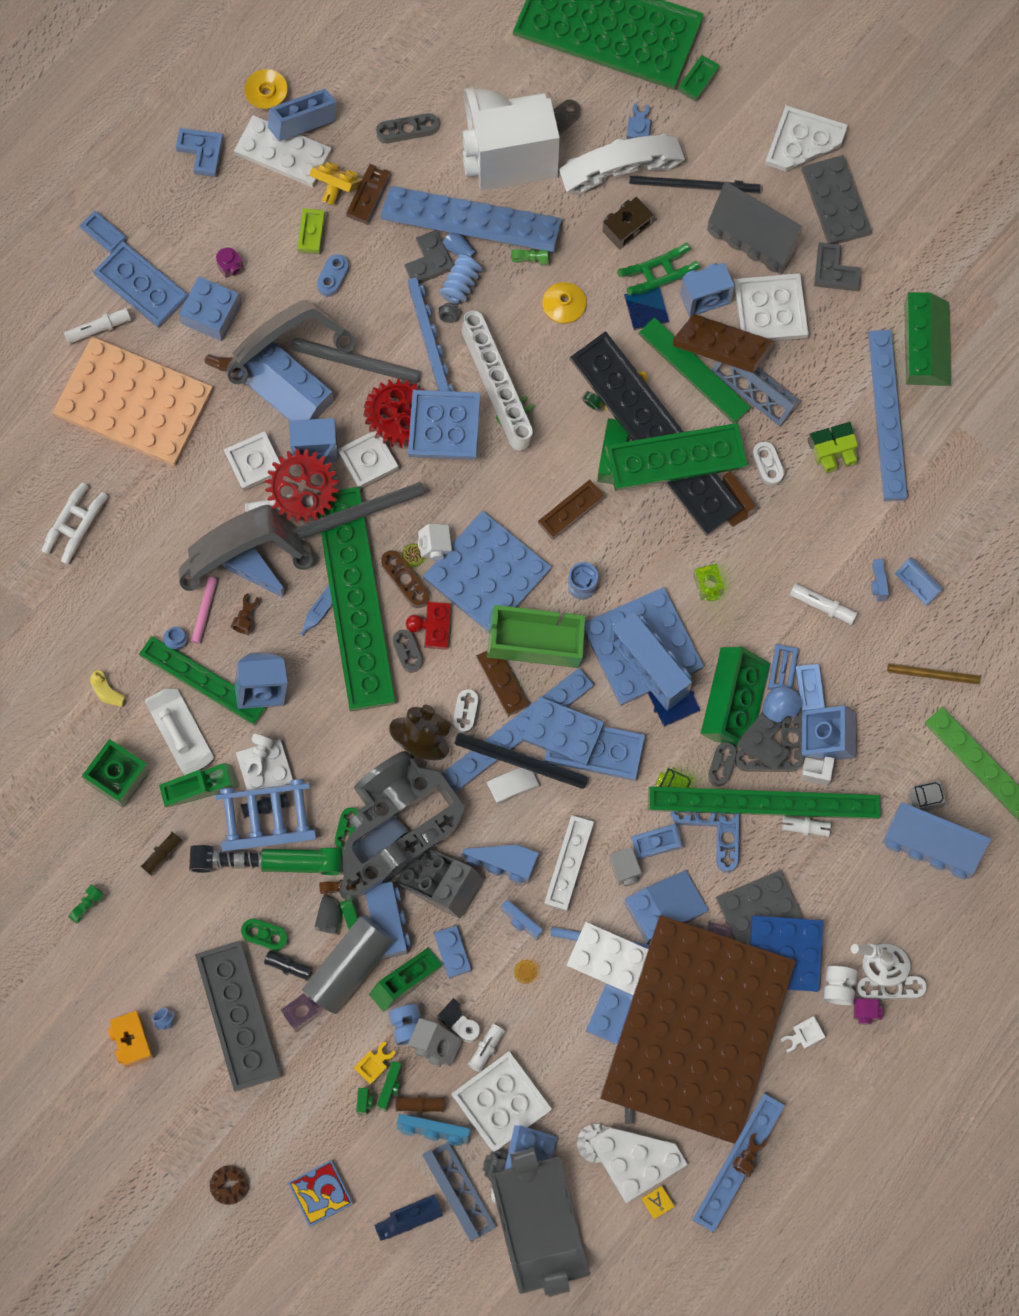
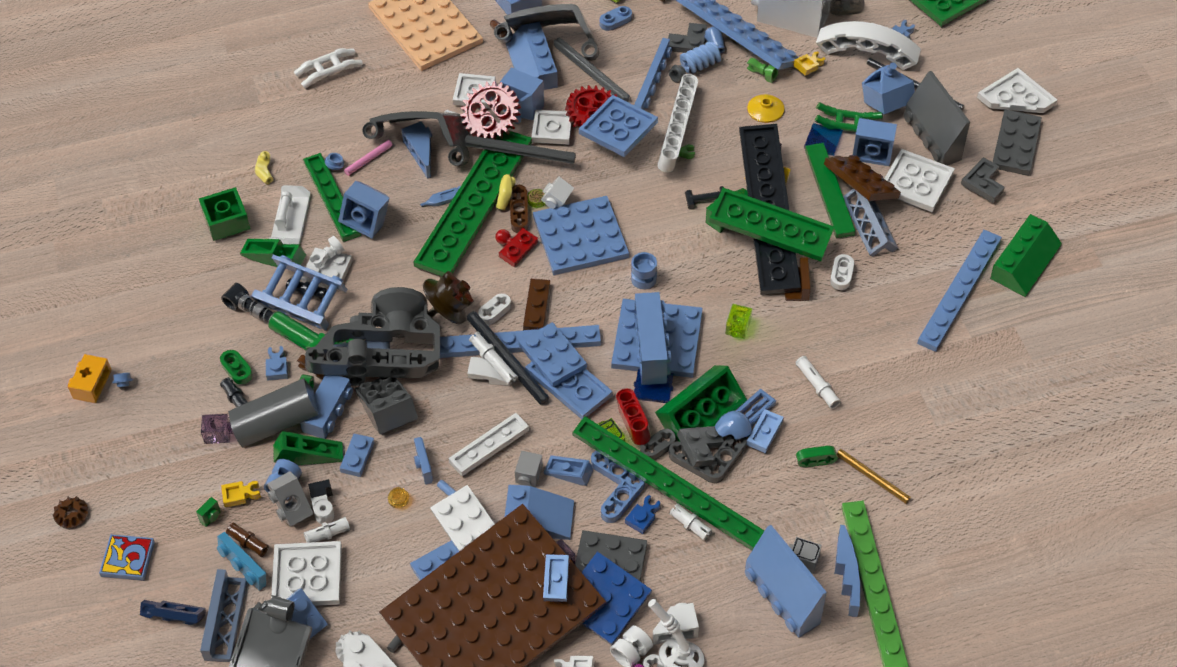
camera: 35 degrees right, 20 degrees down
(87, 902) = (128, 284): green piece -> none
(161, 853) = (212, 279): dark brown pin -> none
(237, 1016) = (172, 407): dark grey plate -> none
(242, 623) = (385, 176): reddish brown piece -> none
(301, 908) = (277, 365): none -> medium blue plate
(329, 916) = (287, 375): dark grey brick -> none
(381, 569) = (505, 191): none -> light yellow arm
(390, 1086) = (236, 513): green plate -> none
(402, 653) = (488, 252): dark grey beam -> none
(507, 859) = (447, 416): medium blue slope -> none
(510, 771) = (487, 351): none -> white pin
(535, 637) = (580, 283): bright green piece -> none
(566, 463) = (692, 199): none -> black piece
(571, 509) = (671, 226): reddish brown plate -> none
(573, 220) = (808, 64): none -> yellow plate
(592, 401) = (738, 170): dark green tile -> none
(621, 232) = (845, 81): dark brown brick -> none
(678, 742) = (633, 416): none -> red beam
(681, 216) = (887, 89): none -> medium blue piece
(698, 78) = (964, 26): green plate -> none
(743, 970) = (556, 578): none -> light blue plate
(757, 849) = (642, 517): none -> blue plate
(817, 770) = (728, 490): white panel -> none
(829, 733) = (757, 467): medium blue slope -> none
(834, 444) = (907, 290): lime hips -> none
(863, 930) = (686, 616): none -> white slope
(873, 686) = (816, 456): none -> green beam
(879, 585) = (871, 392): medium blue plate -> none
(919, 581) = (906, 406): medium blue plate -> none
(969, 782) = (847, 565): none -> medium blue slope

